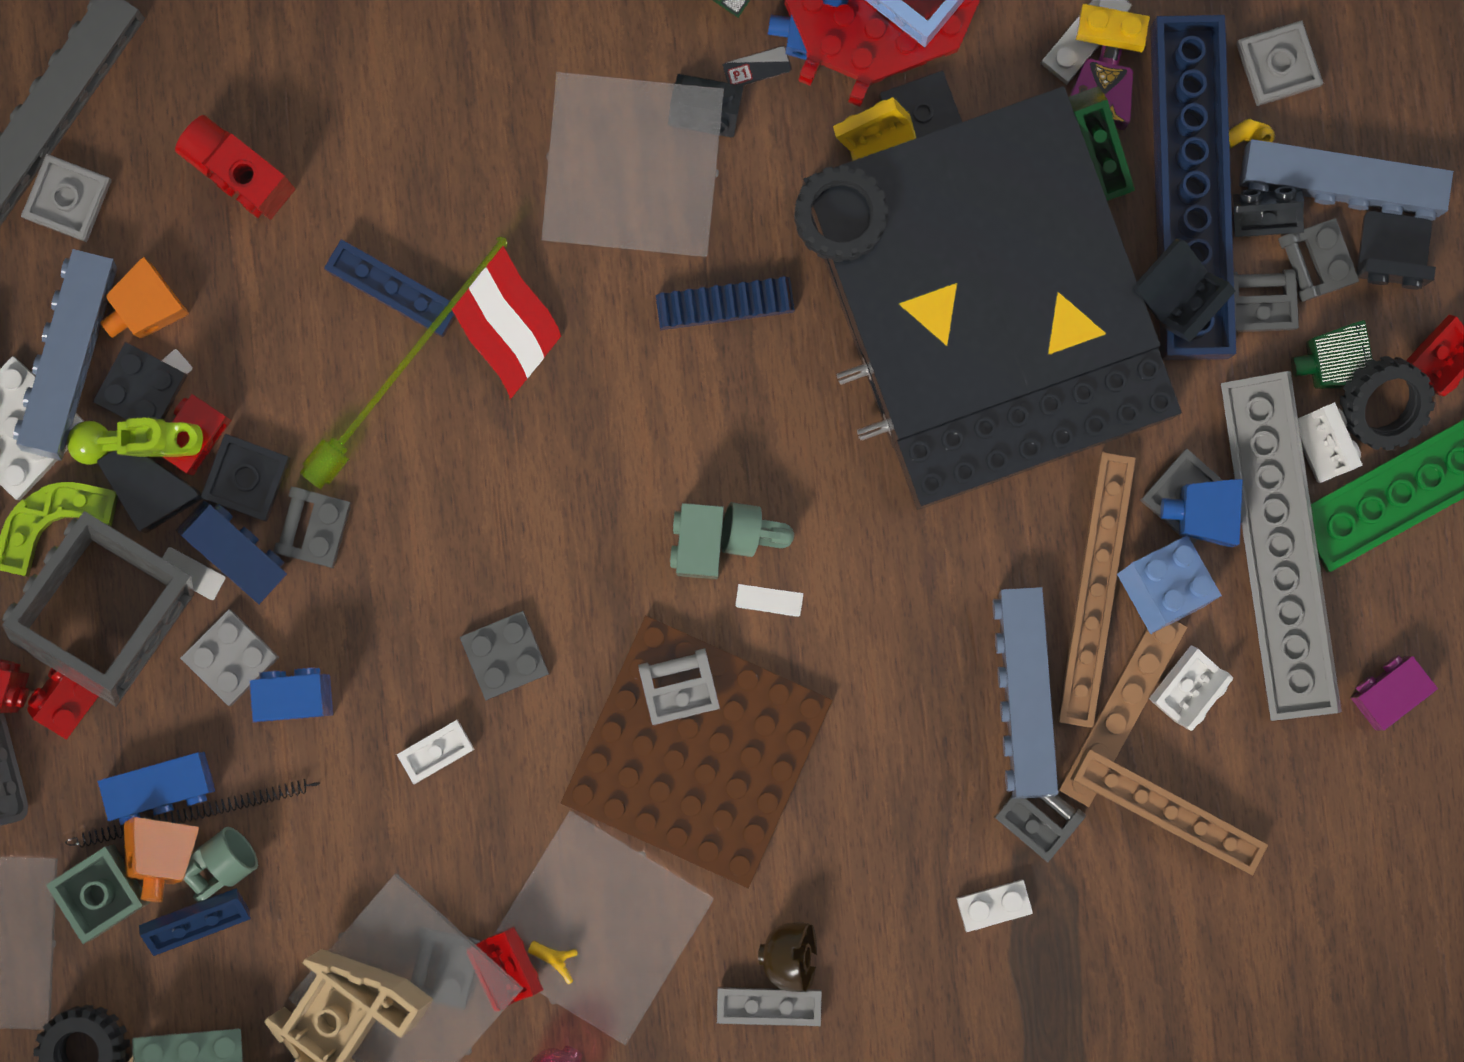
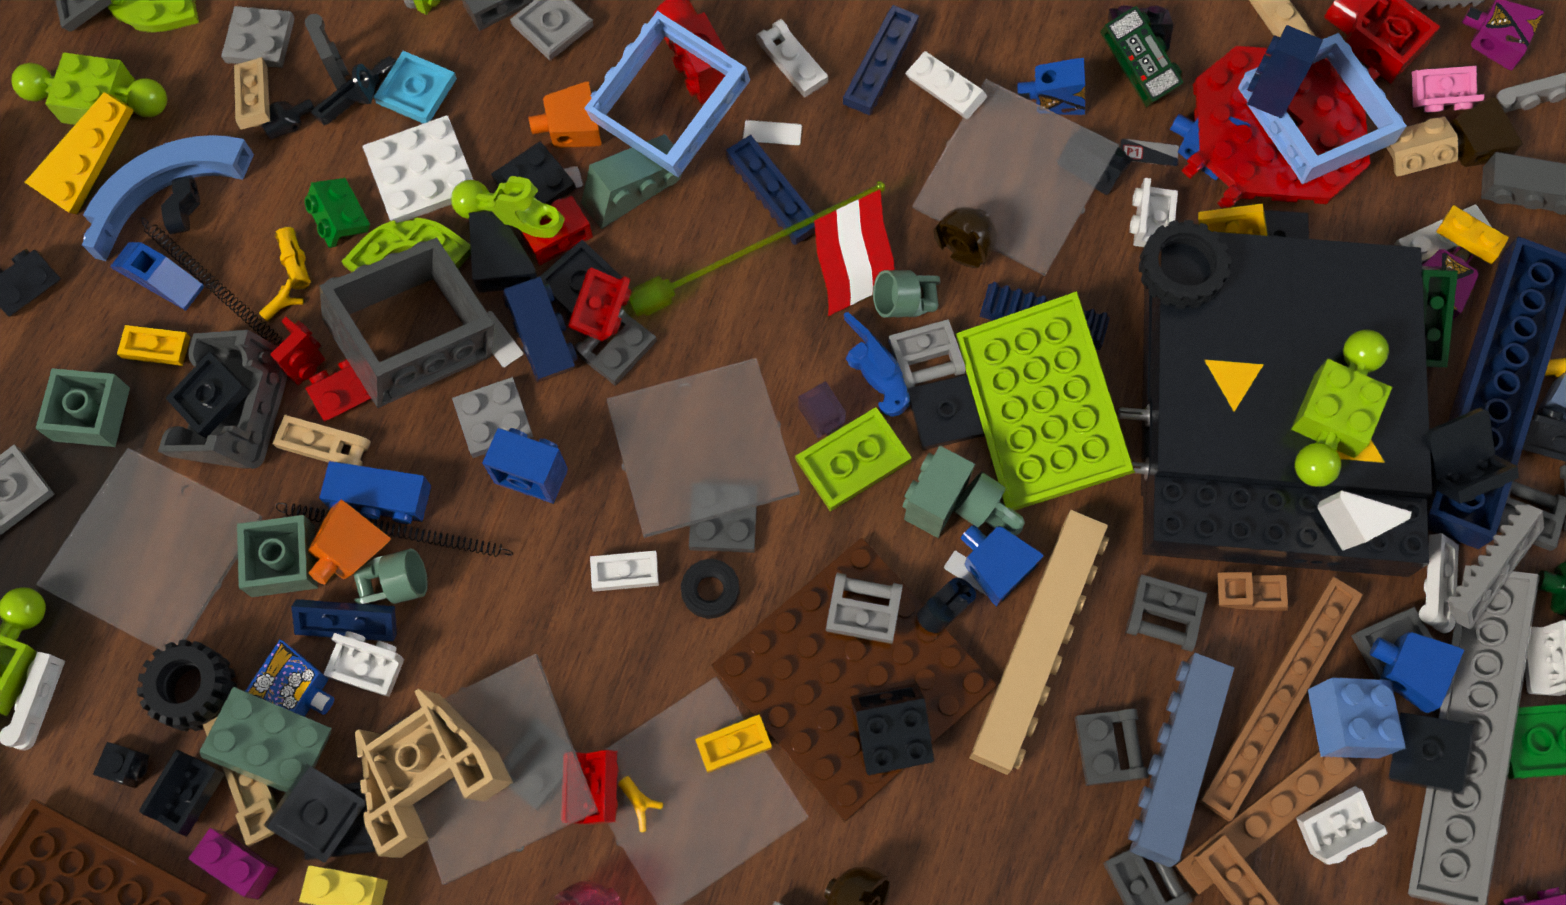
camera: 30 degrees right, 15 degrees down
(66, 354) = (486, 127): sand blue brick -> none
(74, 762) = (319, 441): none -> tan plate
(176, 1003) = (291, 682): none -> torso
(180, 251) = (706, 119): none -> light blue window
(235, 954) = (364, 664): none -> white bracket
(243, 344) = (625, 182): none -> sand green wedge
(281, 499) = (600, 304): none -> red bracket
(342, 125) = (792, 58): none -> white plate
(360, 219) = (773, 132): none -> white sticker
(436, 87) = (881, 60): none -> dark blue gear
(449, 595) = (701, 447): none -> clear piece
(504, 724) = (719, 606): none -> black tyre
(517, 92) = (946, 85): none -> white plate
(551, 505) = (822, 410): none -> clear purple brick
(571, 350) = (899, 293): none -> sand green piece
(587, 437) = (878, 369): none -> blue animal
(602, 540) = (853, 459): none -> lime plate
(614, 254) = (968, 235): none -> dark brown cylinder
(615, 868) = (733, 743): none -> yellow plate
(621, 388) = (926, 344): none -> light grey plate
(645, 40) = (1058, 87): none -> blue torso
(670, 449) = (945, 412): none -> black plate
(748, 660) = (946, 605): none -> black piece
(754, 788) = (893, 728): none -> black bracket
(761, 402) = (1044, 402): none -> lime plate
(784, 580) = (999, 561): none -> blue torso
(791, 145) = (1154, 209): none -> white bracket
(855, 639) = (1038, 643): none -> tan brick
(950, 714) = (1100, 750): none -> dark grey plate
(958, 546) = (1169, 602): none -> dark grey plate
(1033, 498) = (1252, 592): none -> medium nougat slope
(1045, 302) = (1341, 408): none -> lime brick
(1103, 414) = (1358, 519): none -> white slope
(1204, 413) = (1440, 583): none -> white plate
(1248, 378) = (1497, 565): none -> light grey gear
(1249, 583) = (1434, 753): none -> black plate

